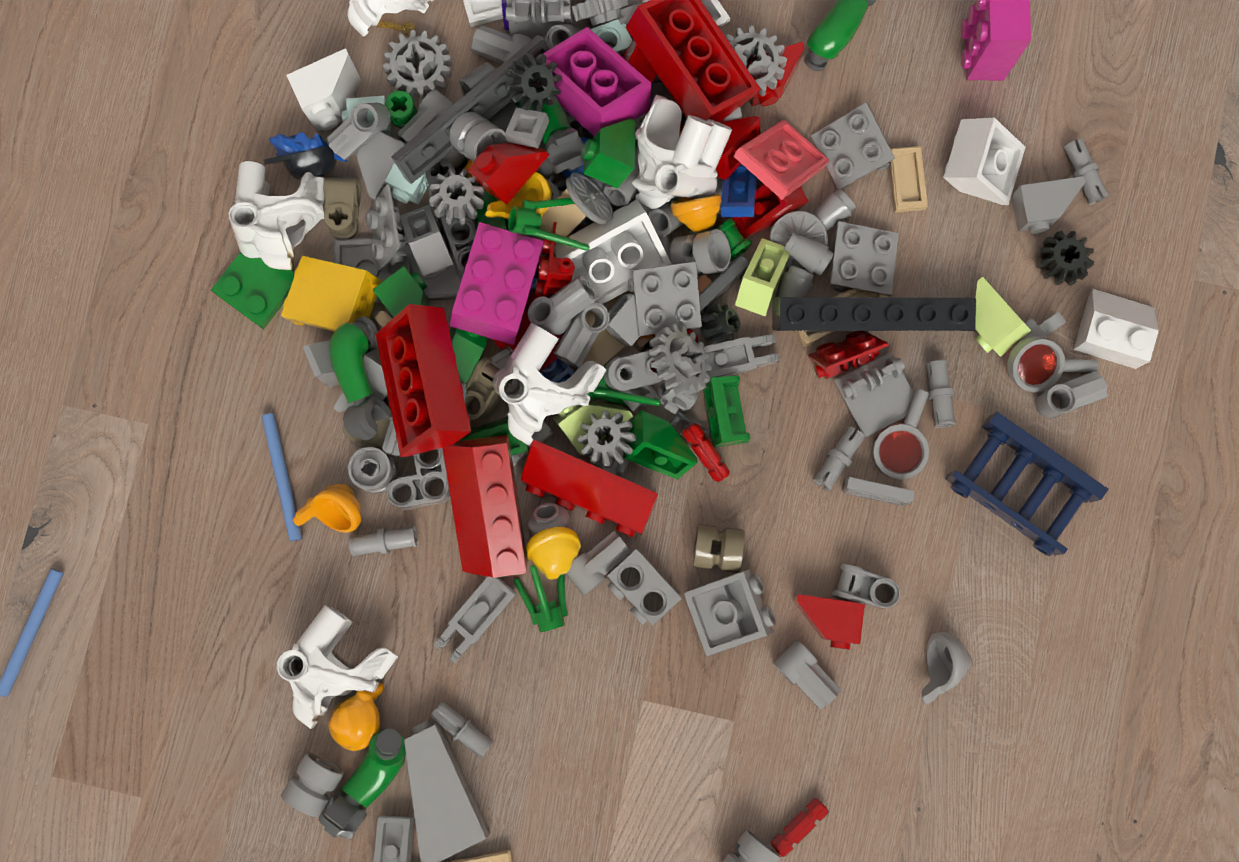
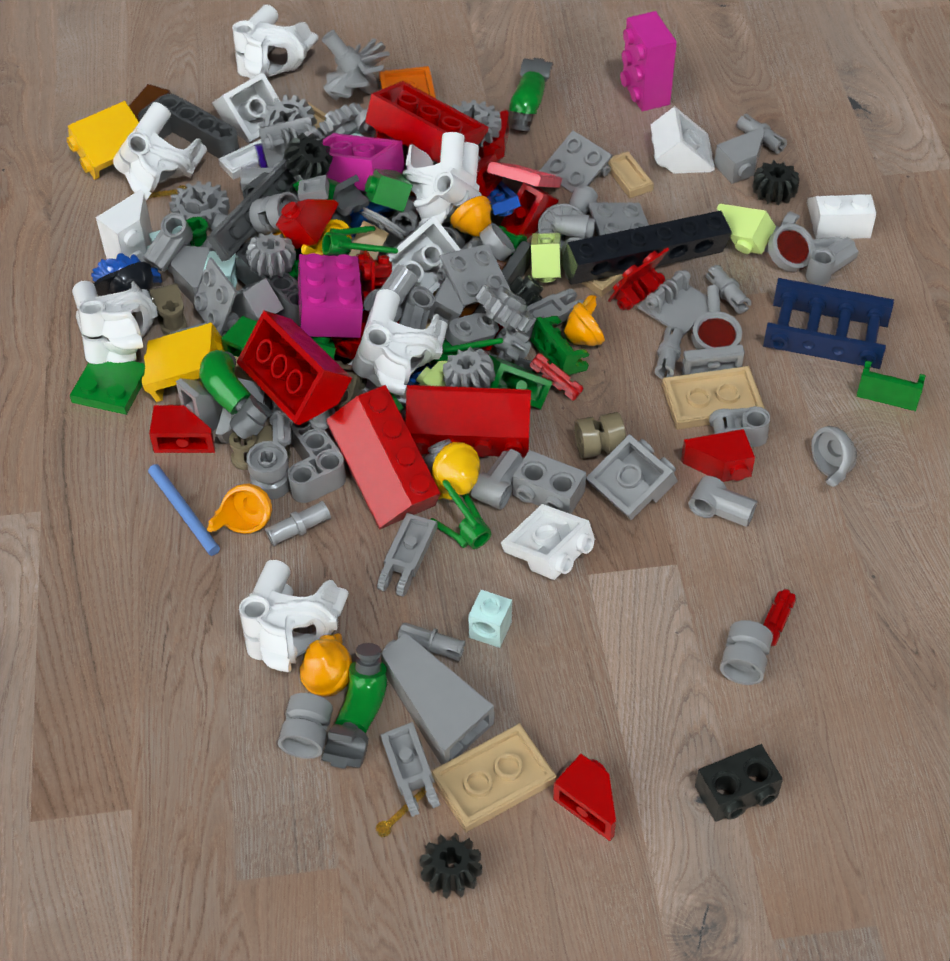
camera: 25 degrees left, 30 degrees down
(295, 378) = (179, 431): none -> red slope
(523, 730) = (490, 618): none -> light aqua brick
(616, 659) = (550, 541): none -> white plate
(761, 393) = (581, 326): none -> light orange hat
(860, 531) = (698, 395): none -> tan tile
(1050, 592) = (890, 389): none -> green hinge

